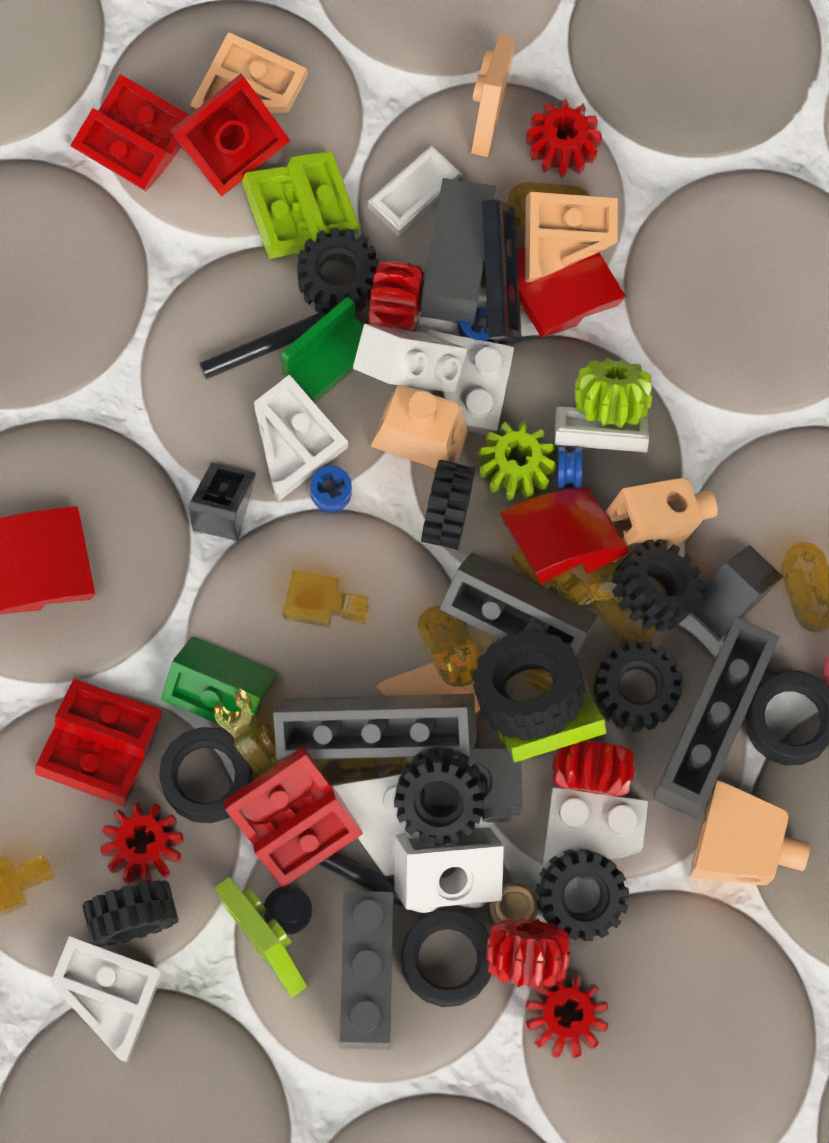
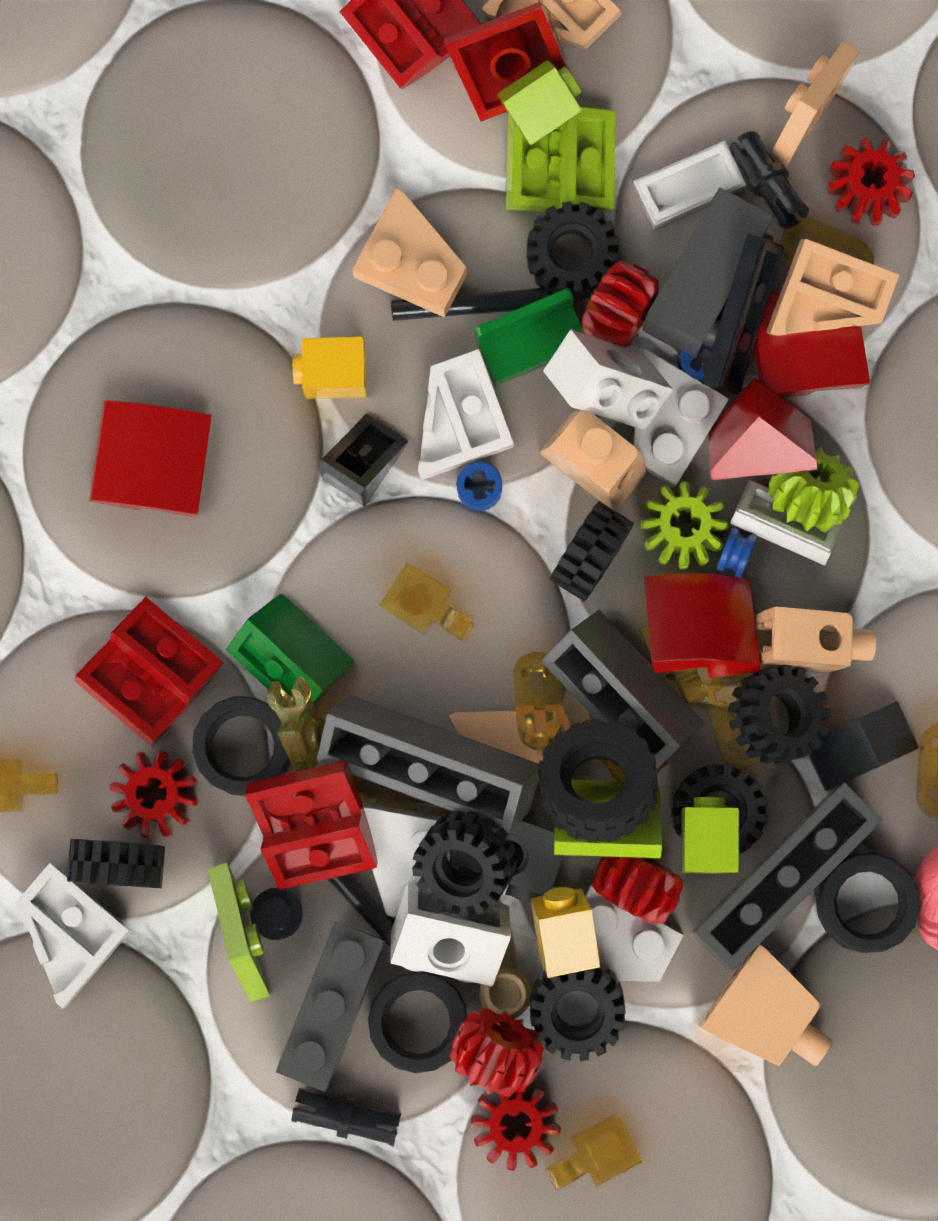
camera: 30 degrees right, 10 degrees up
(169, 431) = (331, 367): none -> yellow brick
(204, 322) = (410, 258): none -> light nougat wing
(269, 155) = (541, 100): none -> lime brick
(414, 1066) = (346, 1117): none -> black pin
(480, 162) = (769, 180): none -> black pin
(547, 827) = (564, 931): none -> brick
(552, 362) = (760, 436): none -> slope
(641, 703) = (710, 837): none -> lime brick
(648, 1016) = (601, 1152): none -> clear yellow plate

